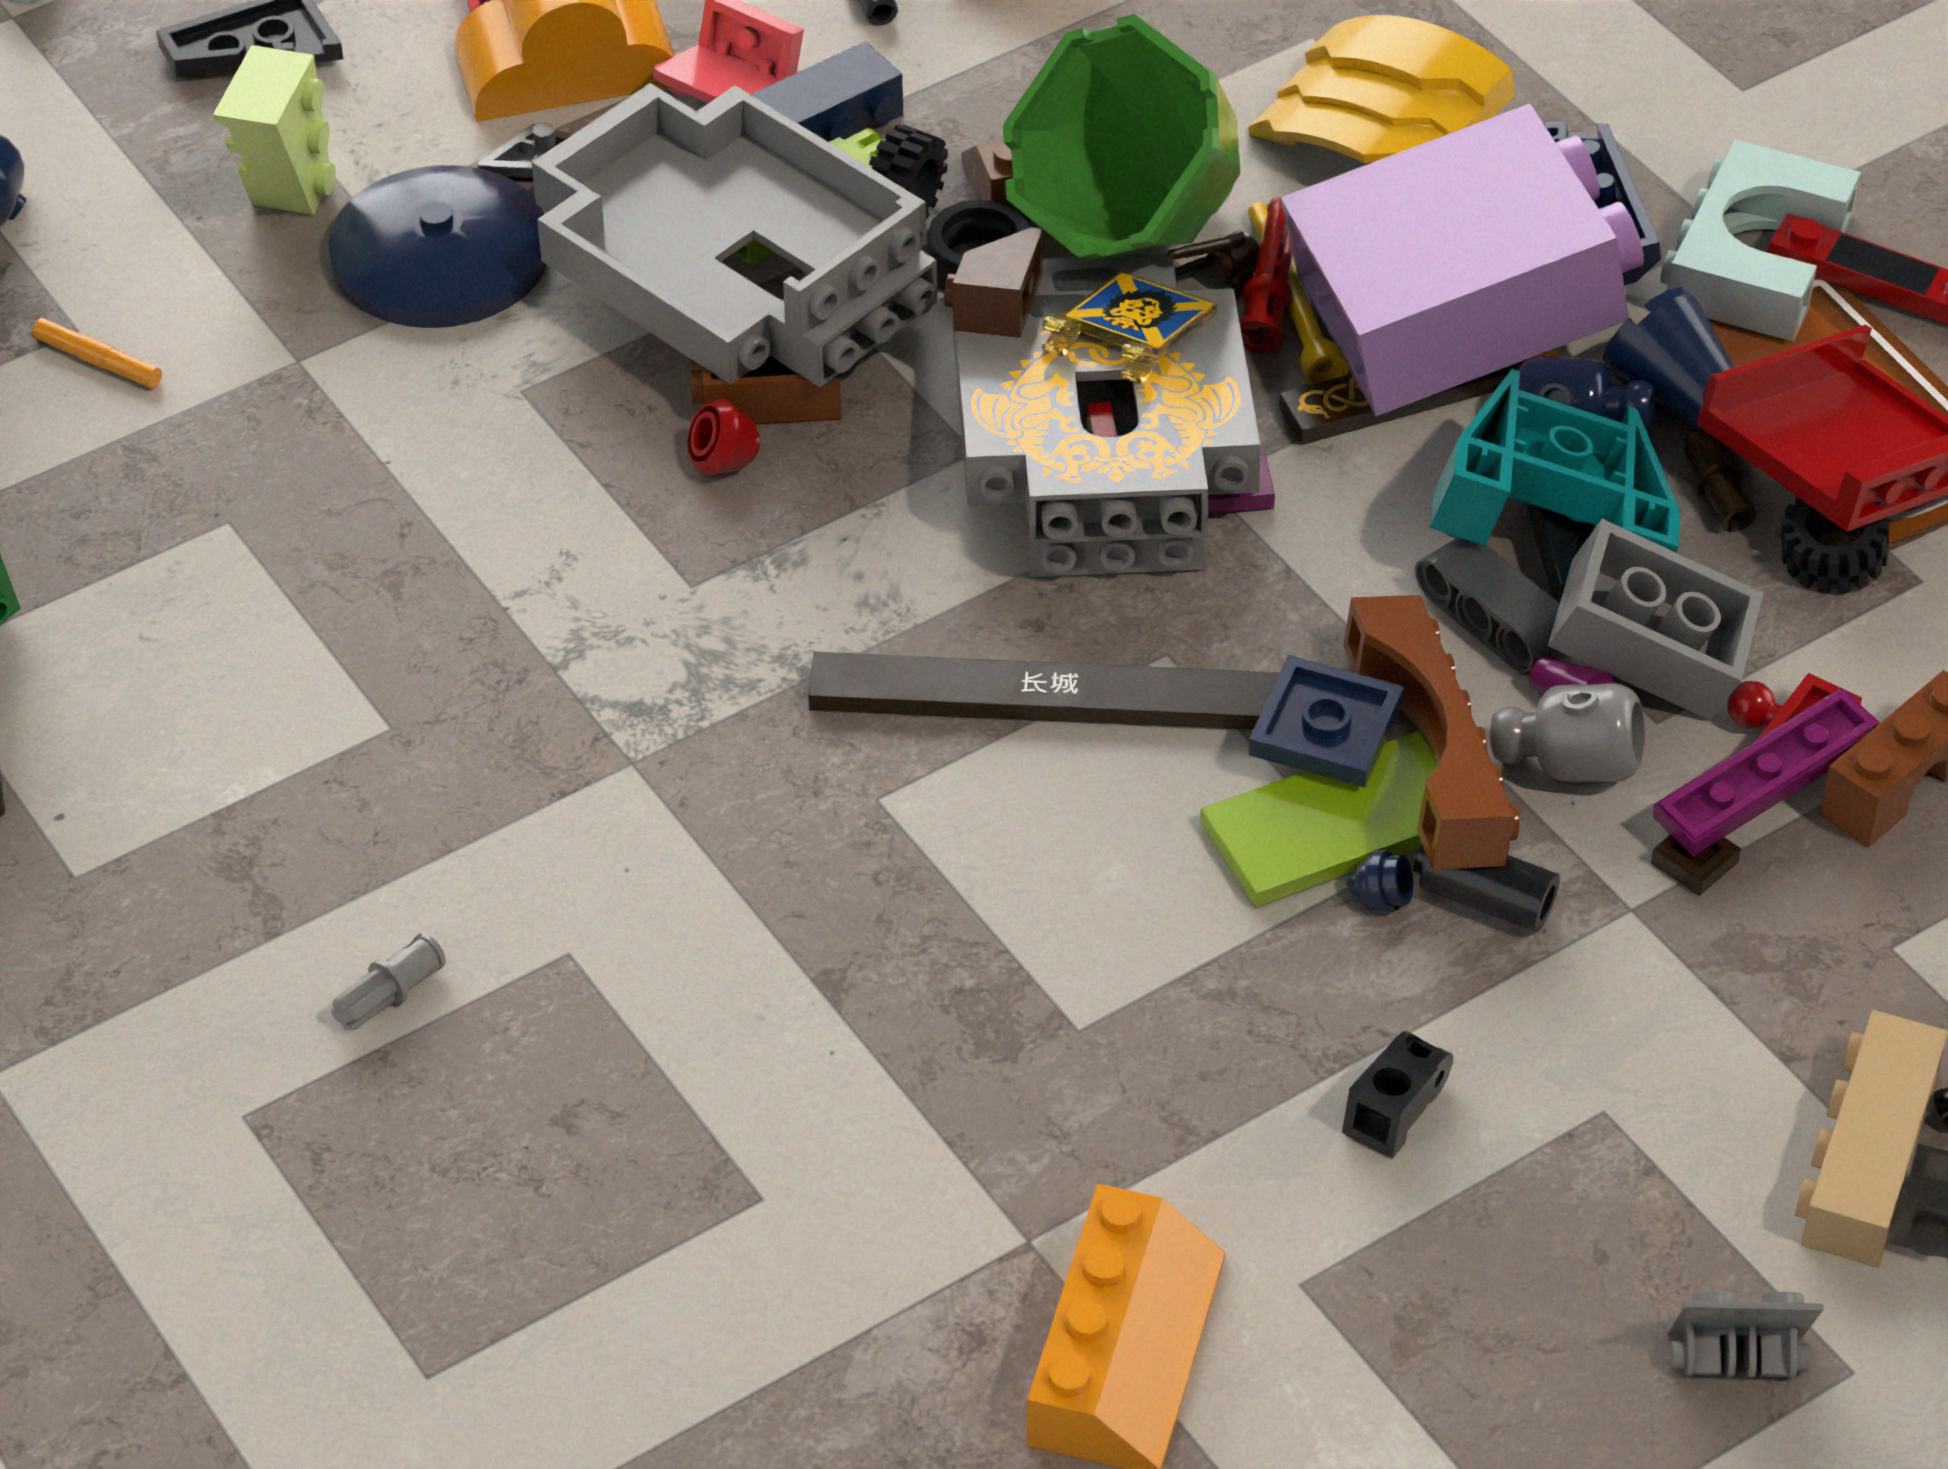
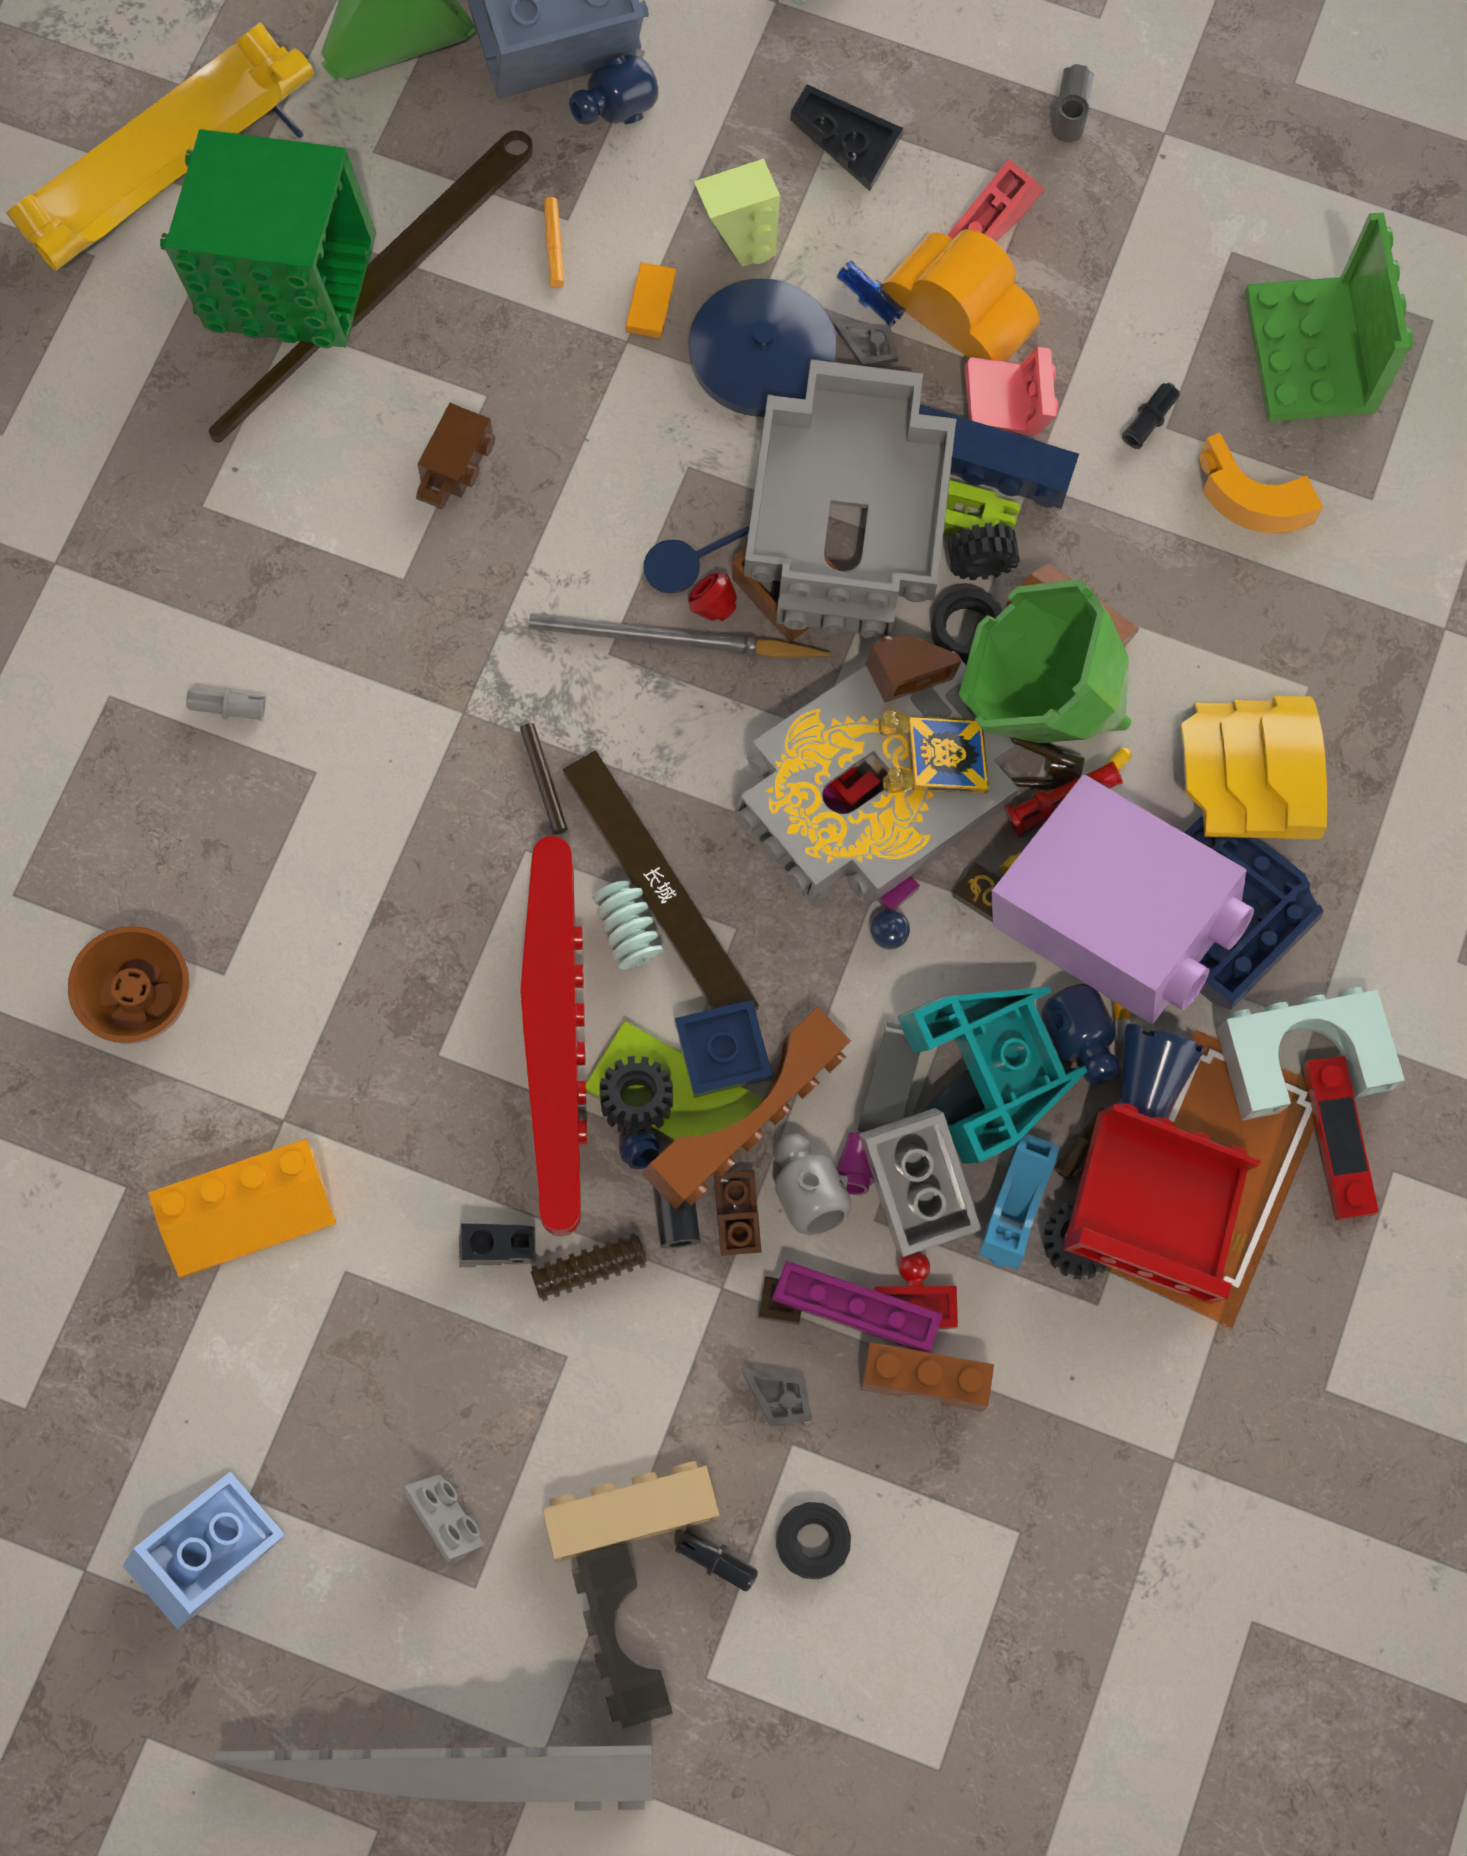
camera: 50 degrees right, 25 degrees up
(272, 307) = (651, 300): none -> light orange tile
(282, 576) = (454, 455): none -> reddish brown brick
(475, 118) = (871, 293): none -> clear blue pin
(639, 465) = (675, 565): none -> dark blue piece
(708, 1266) = (117, 969): none -> dark orange piece
(800, 457) = (734, 643): none -> flat silver piece
(800, 726) = (543, 778): none -> dark brown bar
(1078, 733) = (625, 925): none -> light aqua piece
(1160, 873) = (551, 1034): none -> red piece
(1297, 510) = (890, 929): none -> dark blue plate
(1325, 849) = (641, 1116): none -> black tyre
(1504, 1011) = (588, 1266): none -> dark brown piece
(1561, 843) = (737, 1213): none -> reddish brown slope
(1723, 538) = (1018, 1201): none -> dark azure arch
(1822, 918) = (779, 1396): none -> flat silver piece

